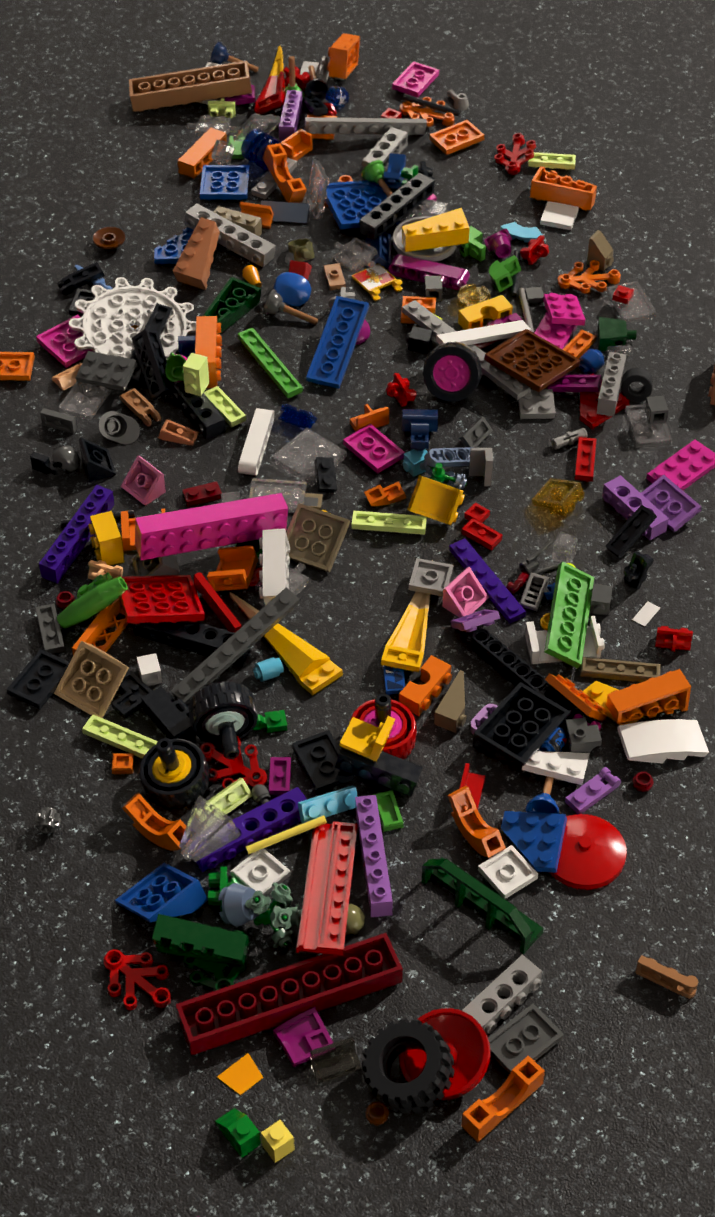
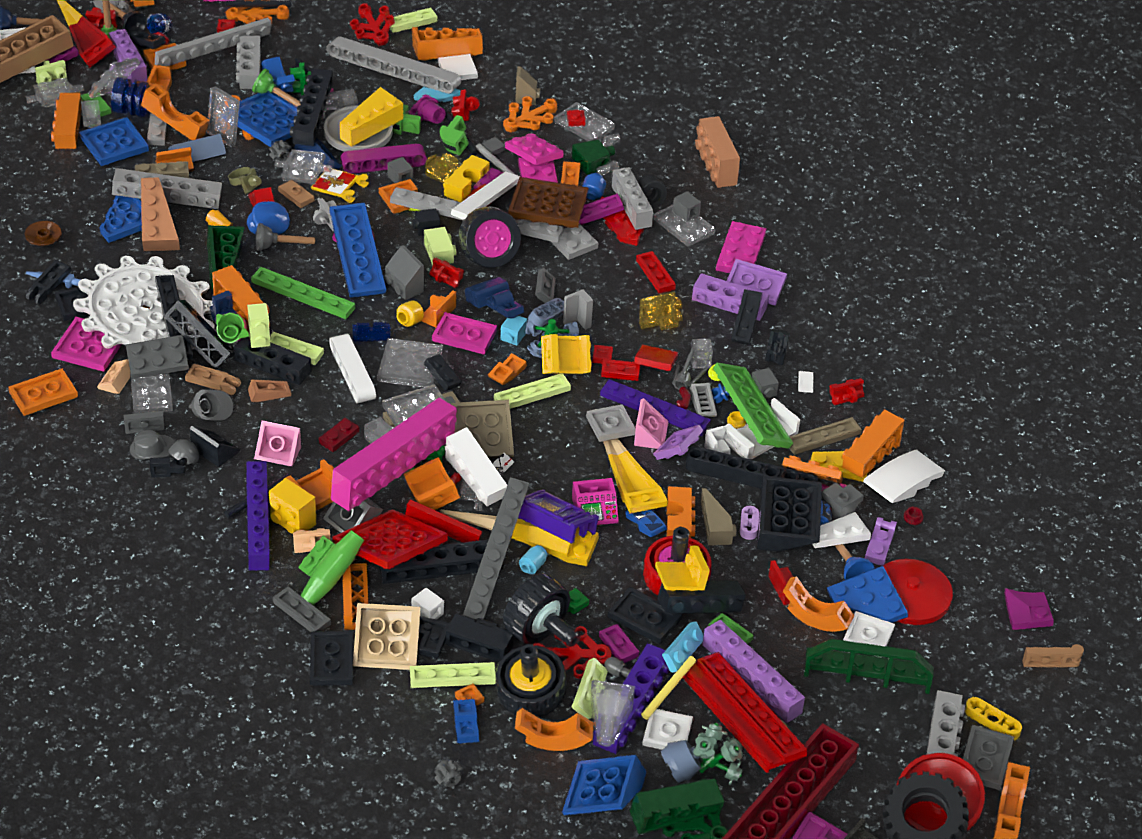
camera: 35 degrees left, 5 degrees down
(49, 439) = (150, 444): none -> dark grey piece
(64, 599) = (293, 580): dark red plate -> none
(101, 783) = (466, 721): none -> blue slope
(218, 879) = (652, 756): green hips -> none
(312, 638) = (557, 516): none -> dark purple door
(314, 574) = (503, 461): none -> white sticker
(340, 413) = (410, 313): none -> yellow head
(346, 234) = (280, 150): none -> dark grey gear
(359, 641) = (597, 498): none -> dark pink slope
(360, 378) = (405, 274): none -> dark grey slope
(413, 363) = (439, 244): none -> yellowish green brick
(456, 137) = (305, 26): orange plate -> none
(502, 194) = (394, 65): none -> light grey beam
(513, 634) = (715, 440): none -> white panel
(521, 535) = (656, 357): none -> red tile
(561, 1017) = (982, 706): none -> yellow beam
(568, 438) = (621, 266): light grey pin -> none
(639, 325) = (610, 139): none -> clear arm
(681, 920) = (1027, 609): none -> magenta plate

